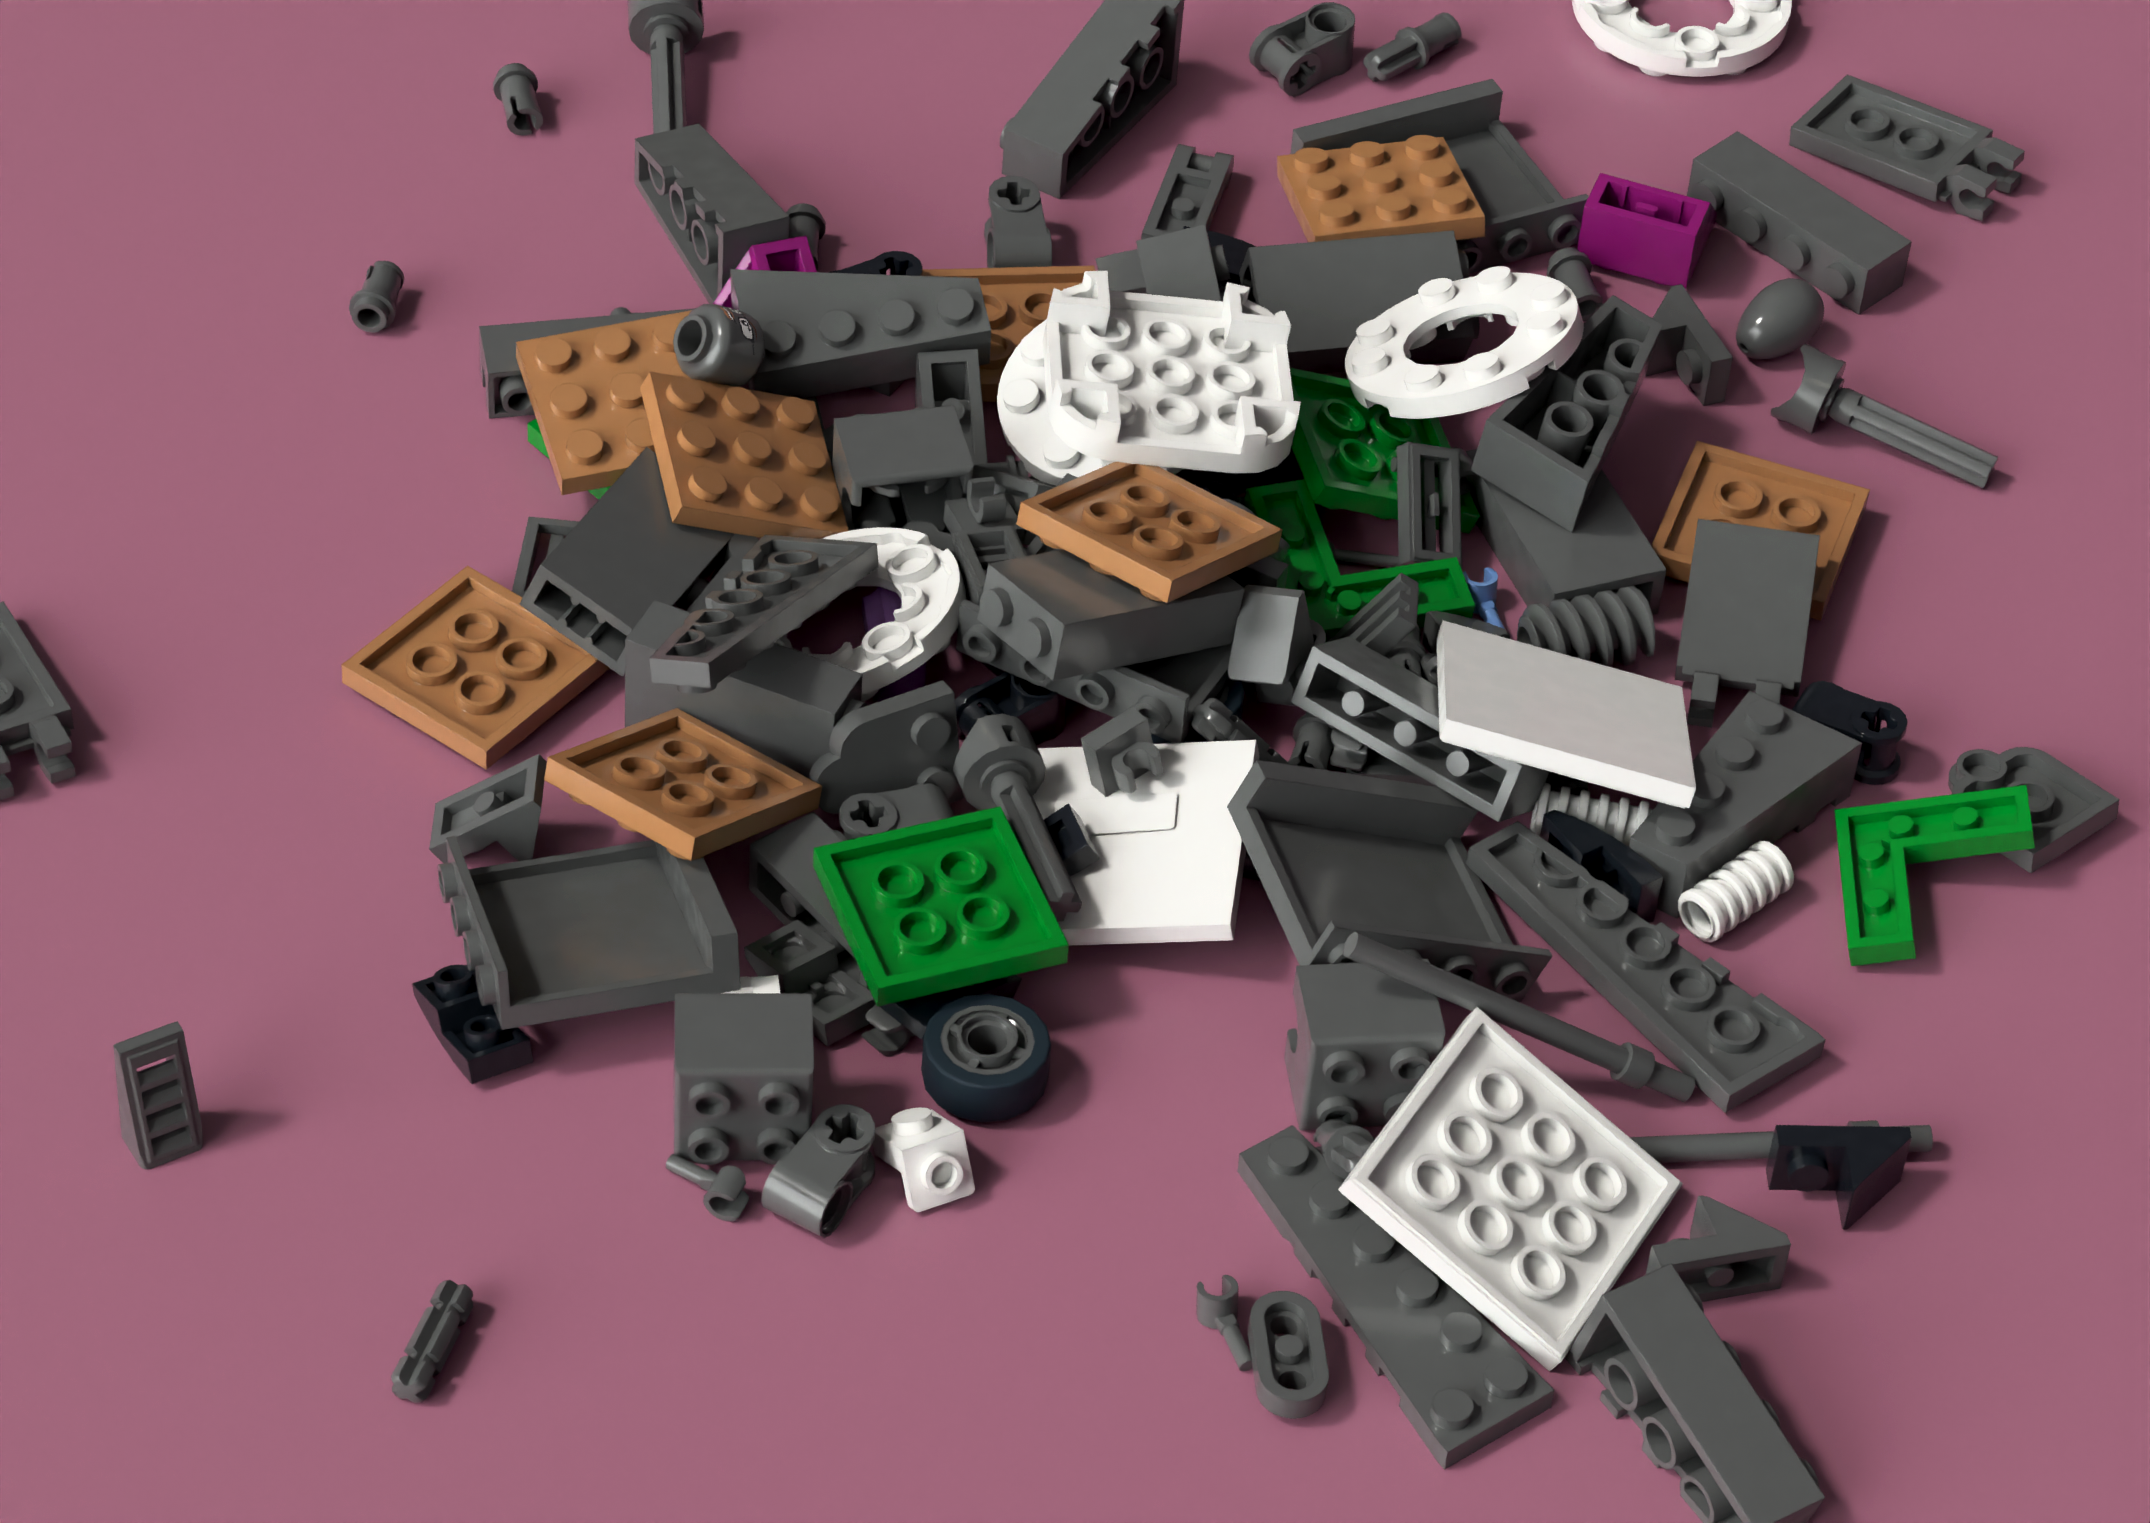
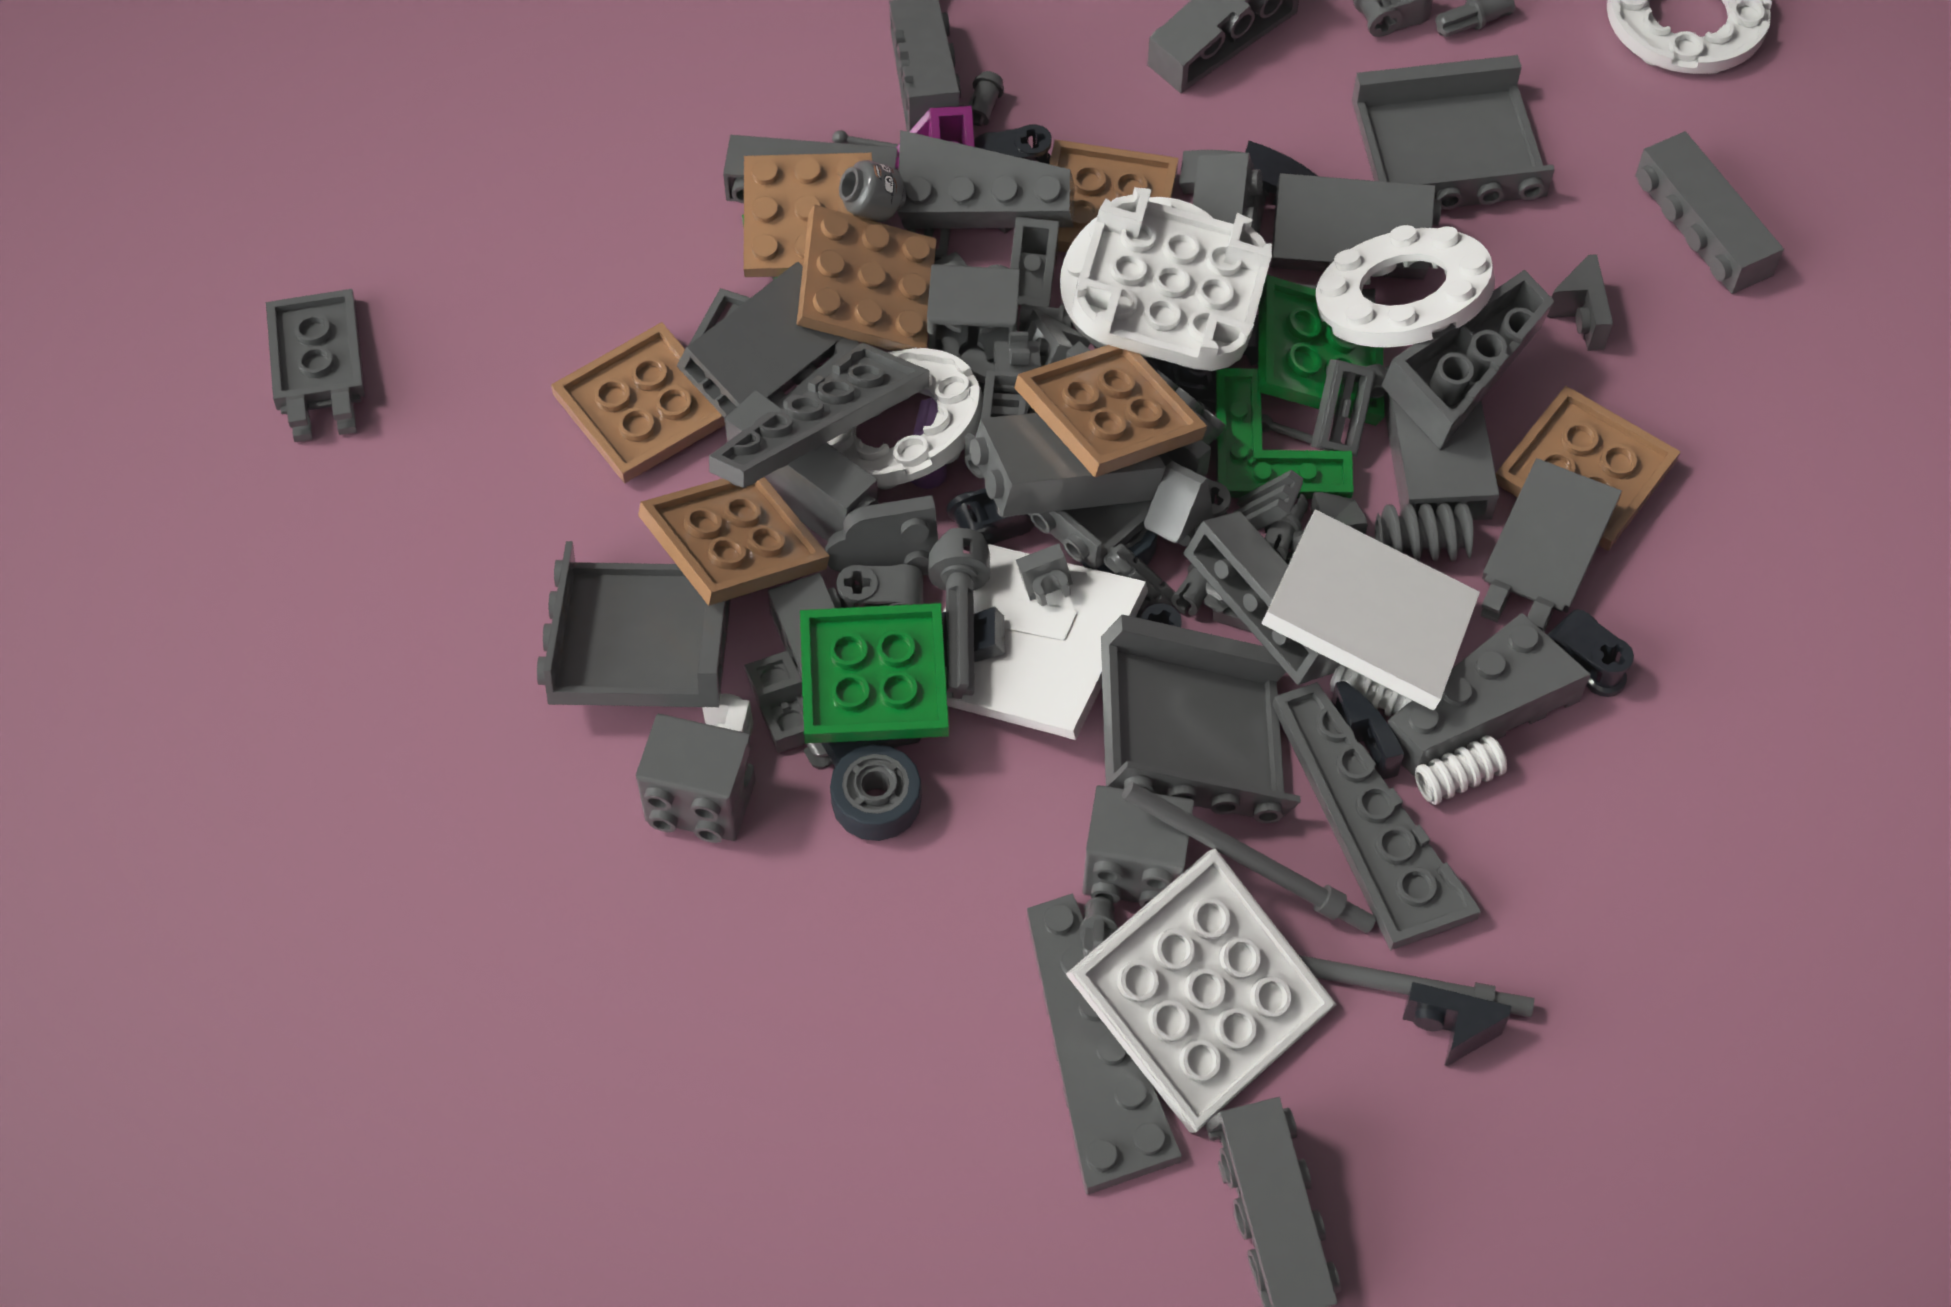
camera: 20 degrees right, 15 degrees up
(159, 1102) = (310, 710): dark grey slope -> none
(374, 304) = (675, 99): dark grey pin -> none
(432, 1341) = (431, 930): dark grey axle -> none
(467, 1028) = (536, 708): black slope -> none
(493, 810) = (608, 525): dark grey slope -> none
(724, 1189) = (665, 858): dark grey hand -> none
(824, 1170) = (733, 861): dark grey piece -> none
(928, 1155) = (808, 861): white bracket -> none
(1017, 225) = (1133, 117): dark grey piece -> none
(1189, 191) = (1267, 111): dark grey plate -> none
(1222, 1314) = (971, 1036): dark grey hand -> none
(1289, 1360) = (1003, 1083): dark grey plate -> none
(1380, 190) = (1401, 138): medium nougat plate -> none
(1485, 596) = (1365, 485): medium blue hand -> none
(1574, 271) = (1524, 226): dark grey pin -> none
(1644, 230) = (1589, 200): magenta slope -> none
(1725, 1253) = (1346, 1079): dark grey slope -> none
(1780, 319) = (1664, 293): dark grey animal -> none
(1823, 396) = (1673, 365): dark grey piece -> none
(1885, 837) = (1591, 748): green plate -> none
(1909, 146) = (1817, 159): dark grey tile -> none
(2061, 801) = (1706, 740): dark grey plate -> none

